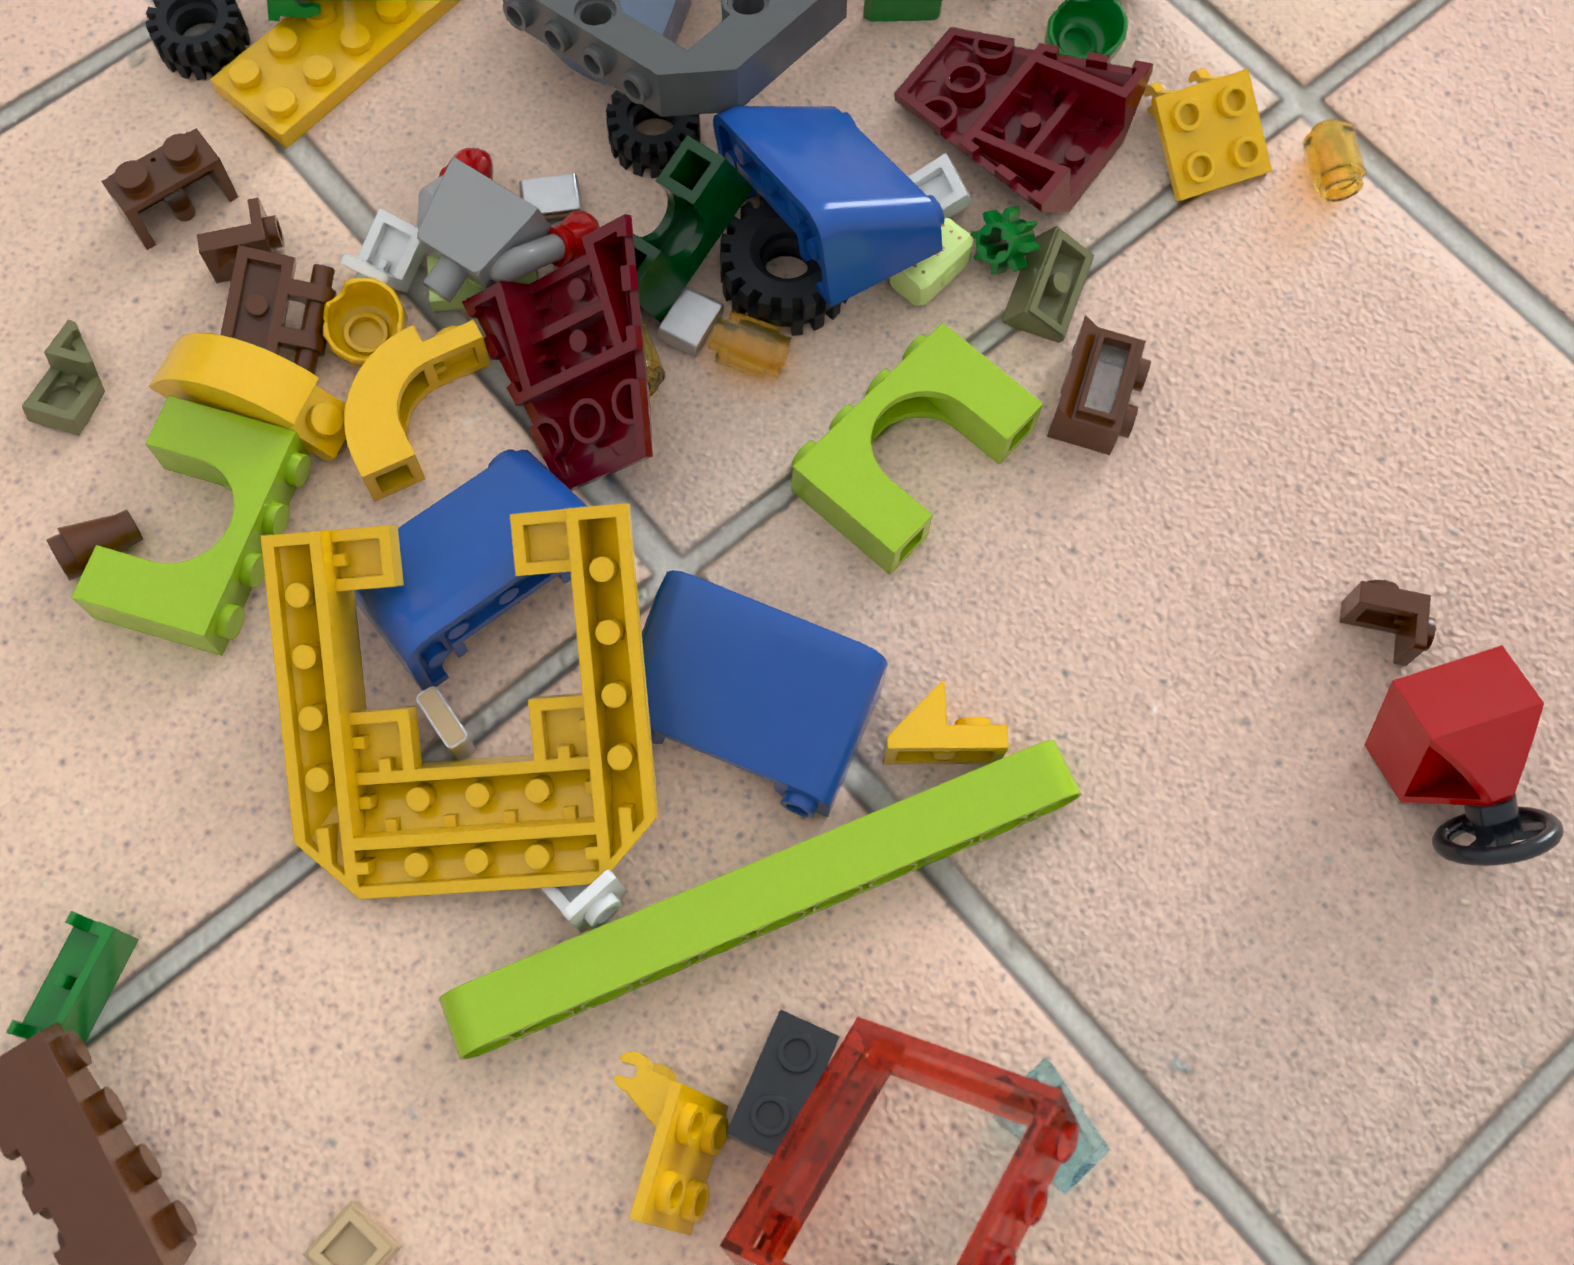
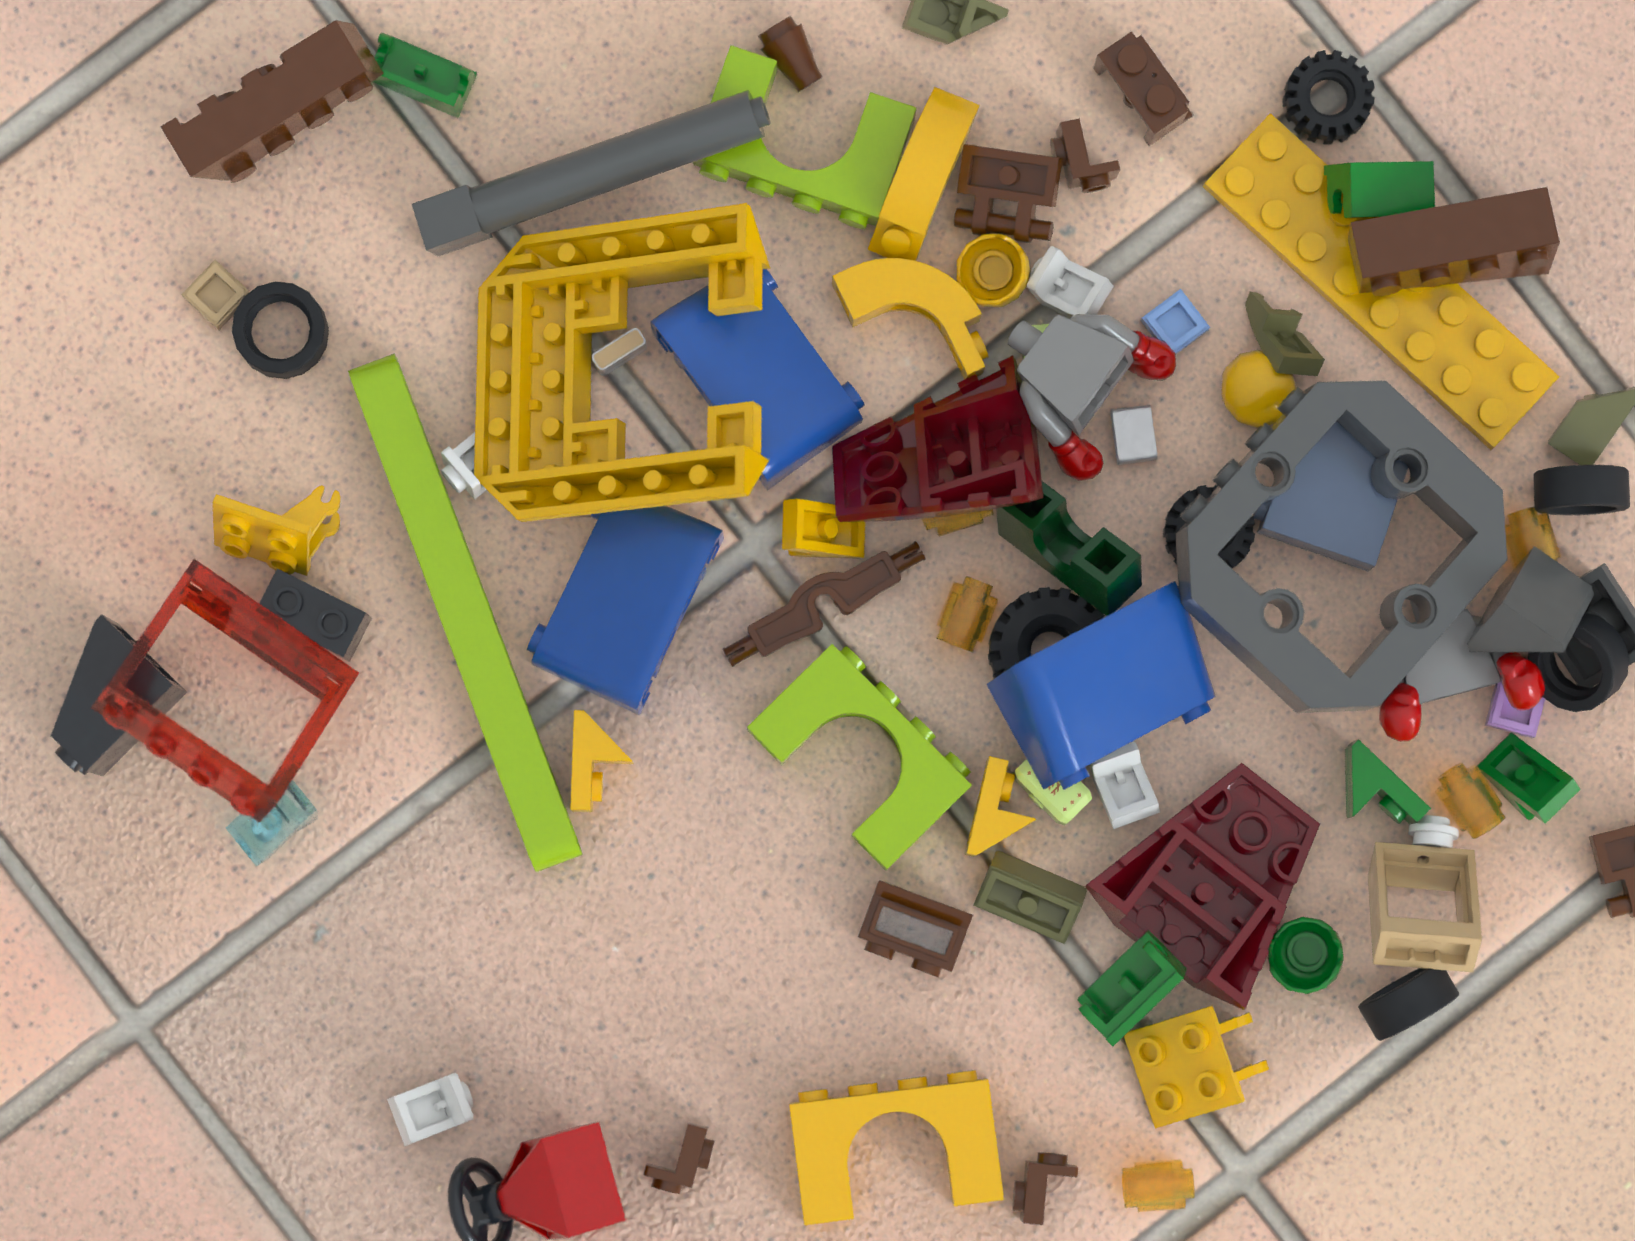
camera: 90 degrees right, 15 degrees up
(259, 905) = (474, 213): none -> dark grey brick
(353, 1147) = (256, 301): none -> black tyre
(425, 159) = (1175, 322): none -> light blue tile
(439, 74) = (1278, 339): none -> olive slope
(502, 87) = (1254, 389): none -> yellow hair
(659, 497) = (814, 531): none -> yellow slope
(690, 321) = (999, 562): flat silver piece -> none
(755, 518) = (846, 589): none -> reddish brown piece
(979, 317) = (989, 822): none -> yellow slope
(1000, 252) = (1068, 854): green gear -> none
(1139, 177) = (1131, 987): none -> green hinge
(1324, 463) = (956, 1109): none -> yellow arch
(1355, 266) = (1031, 1193): none -> reddish brown bracket
(1381, 906) = (431, 1108): none -> white bracket

